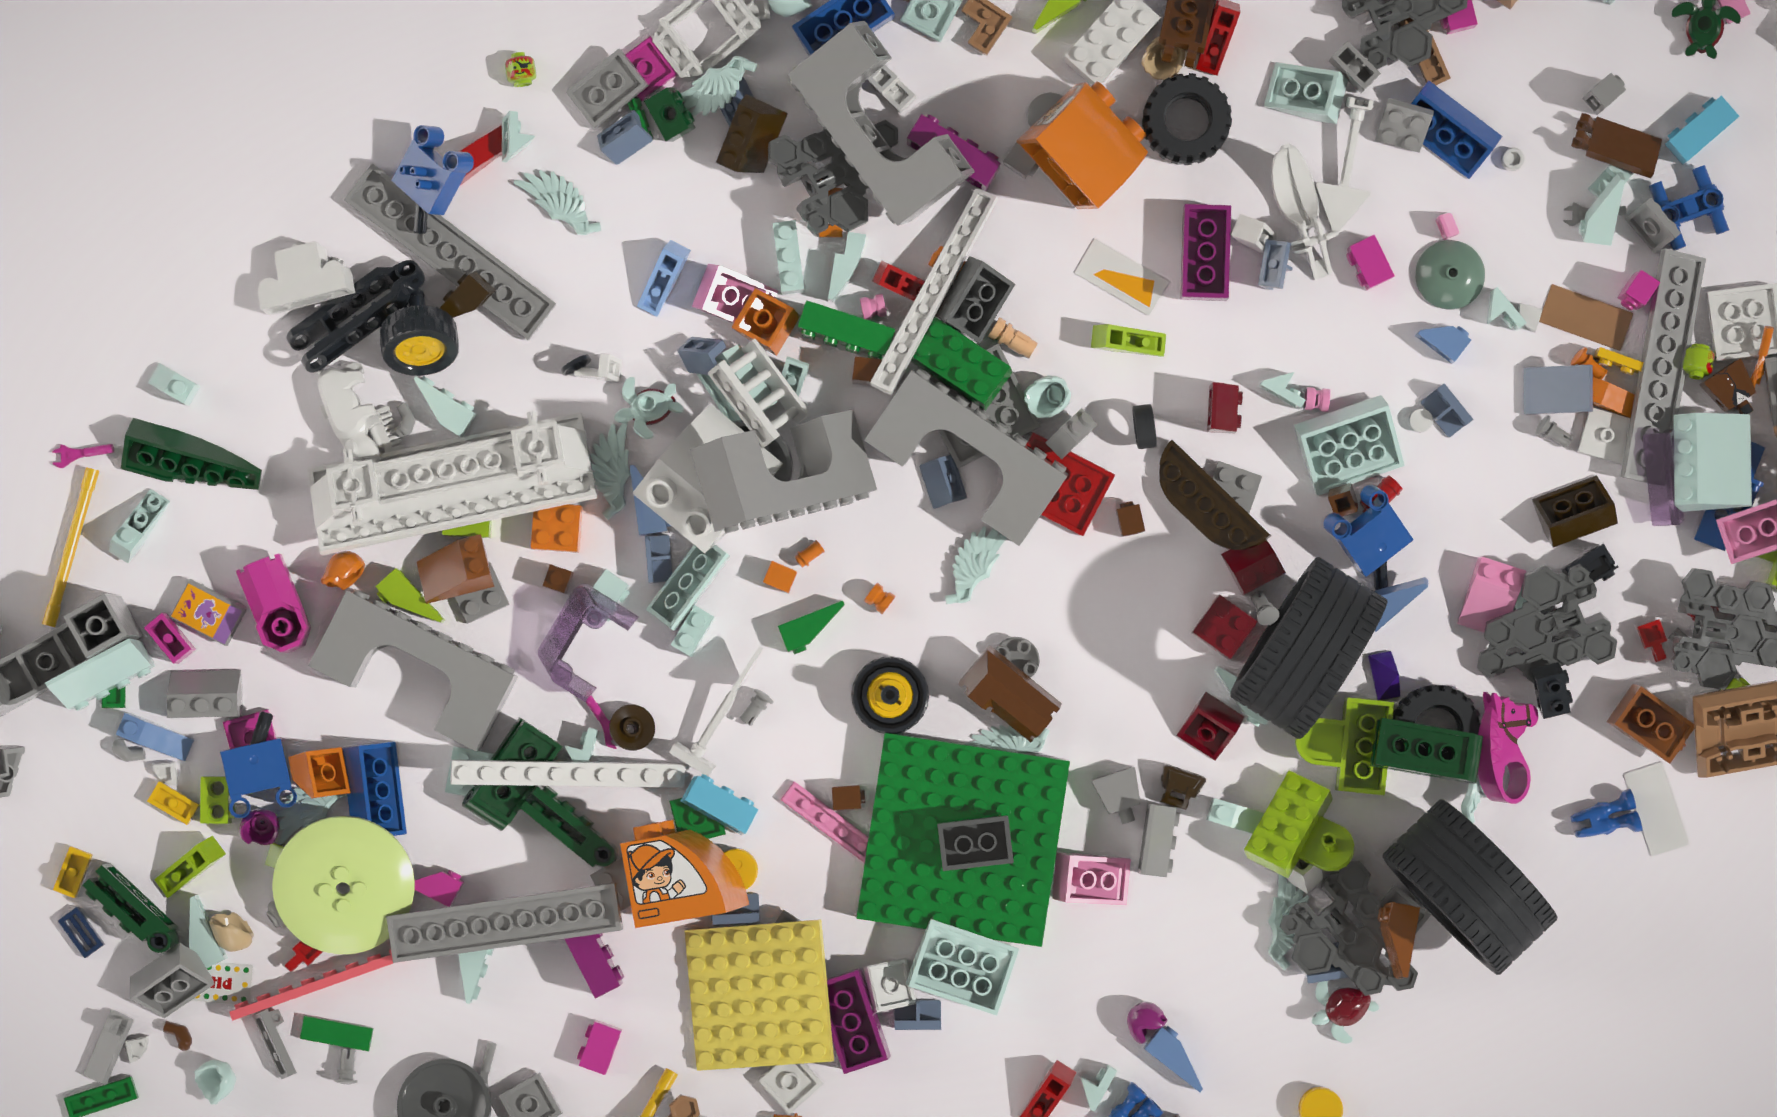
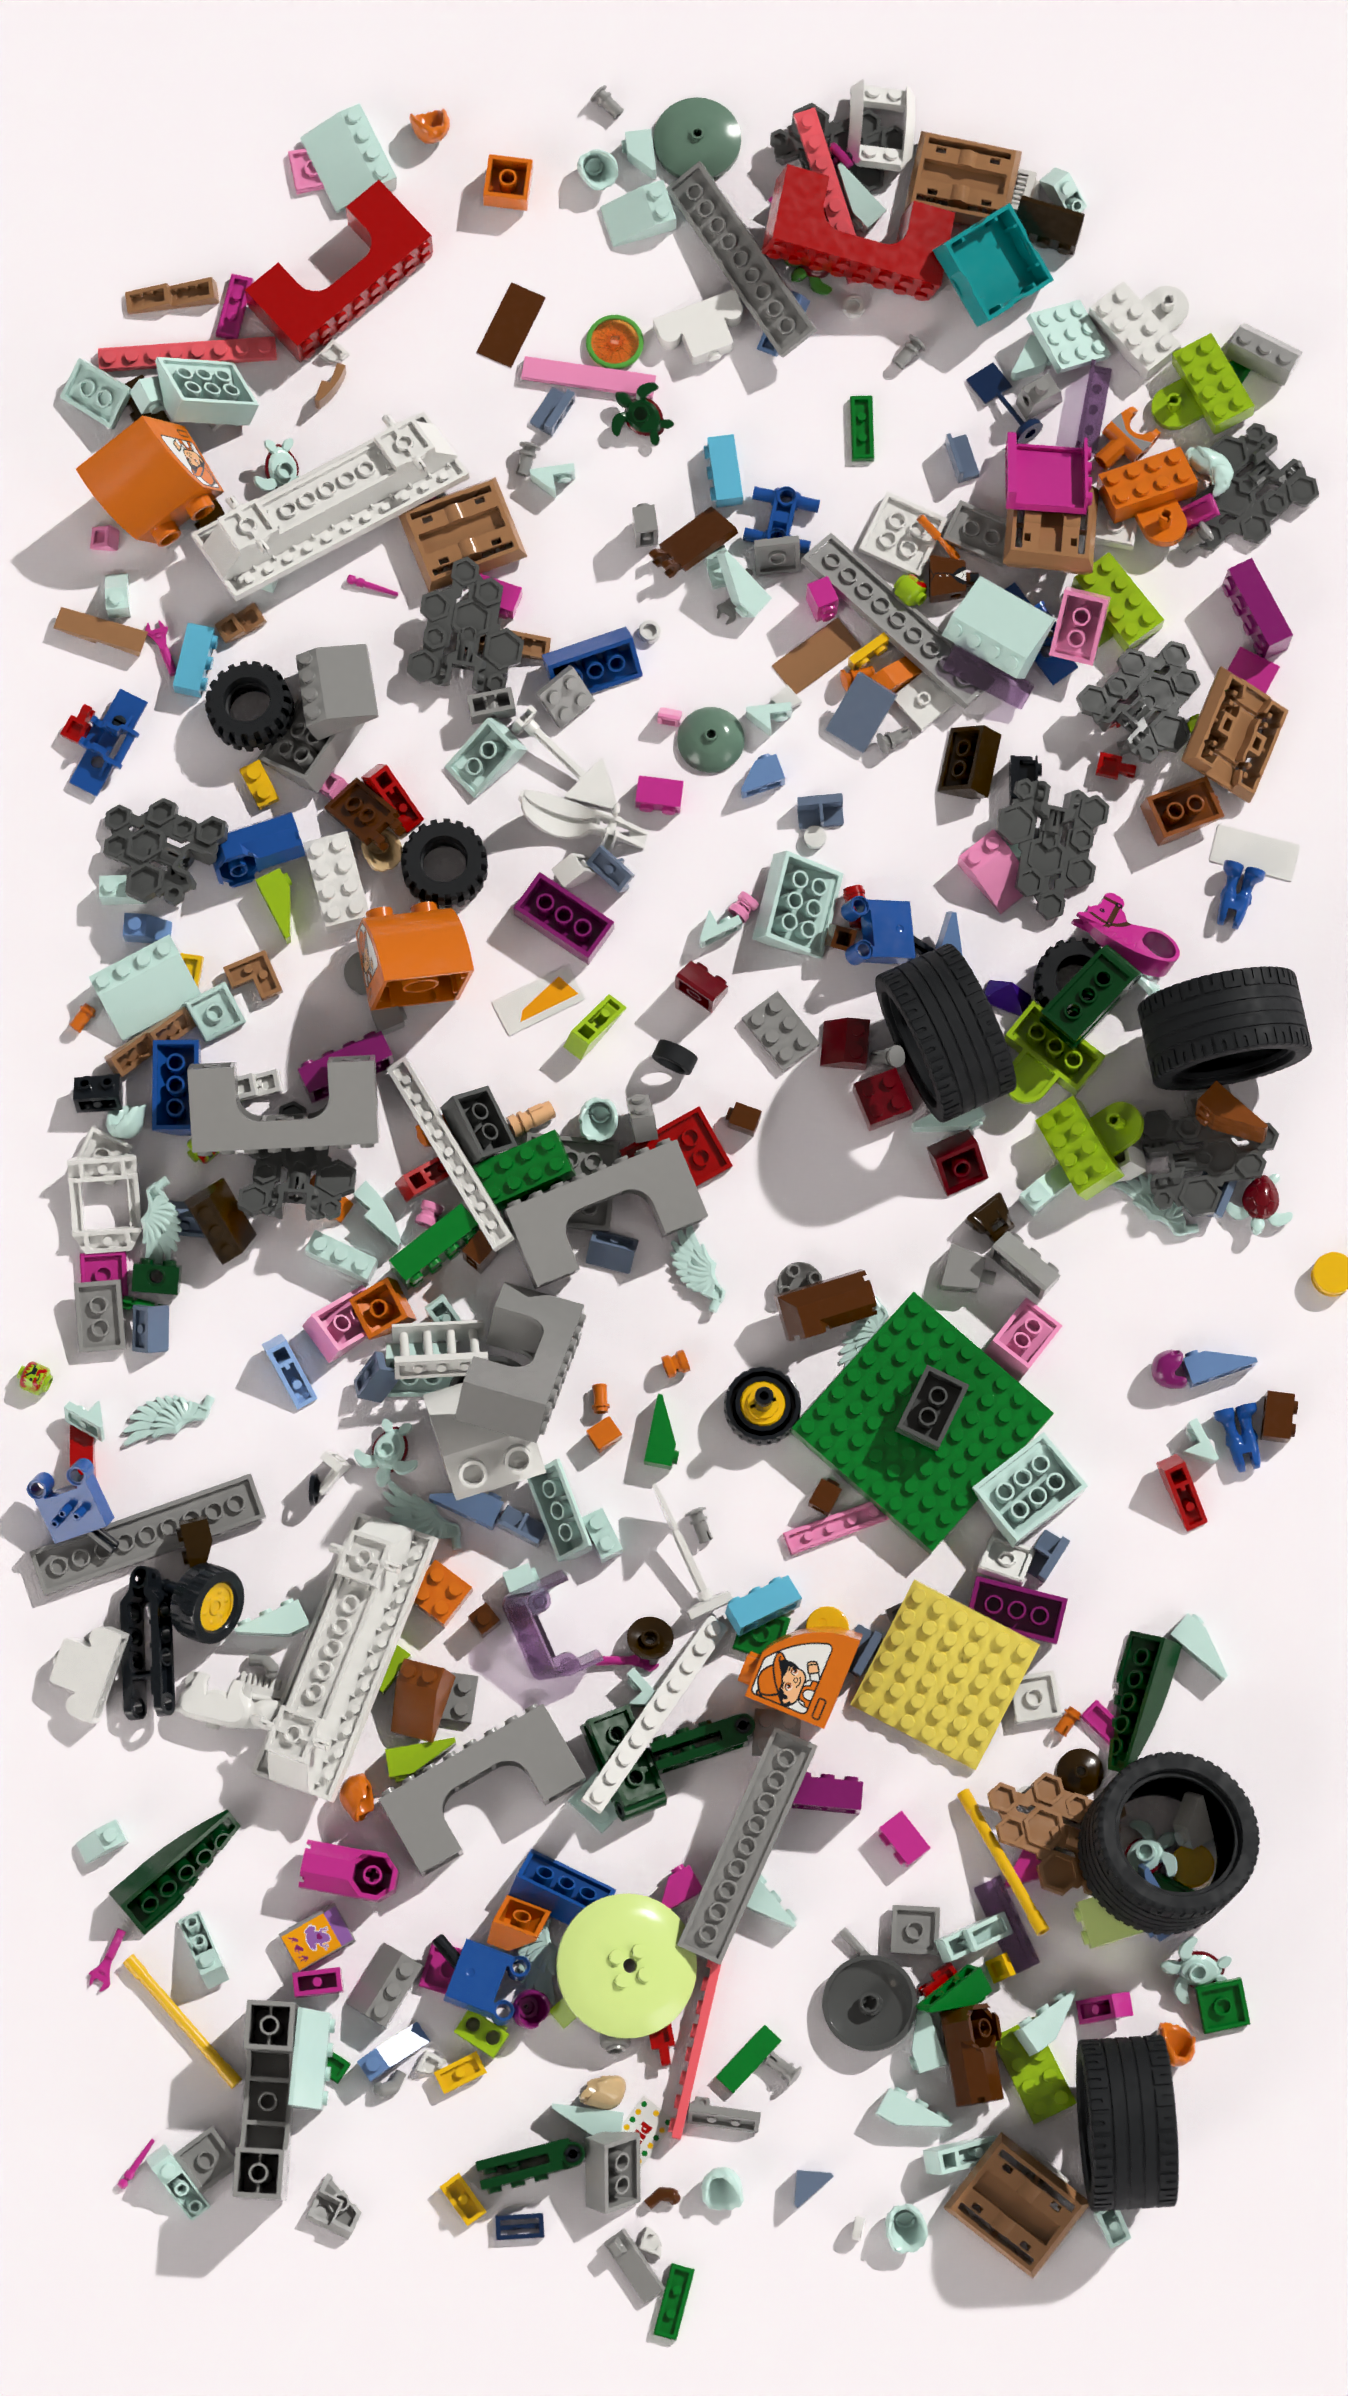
camera: 60 degrees left, 10 degrees down
(190, 866) = (524, 2093): lime slope -> none
(1206, 502) = (771, 1046): dark brown plate -> none
(1551, 690) = (1104, 871): black brick -> none

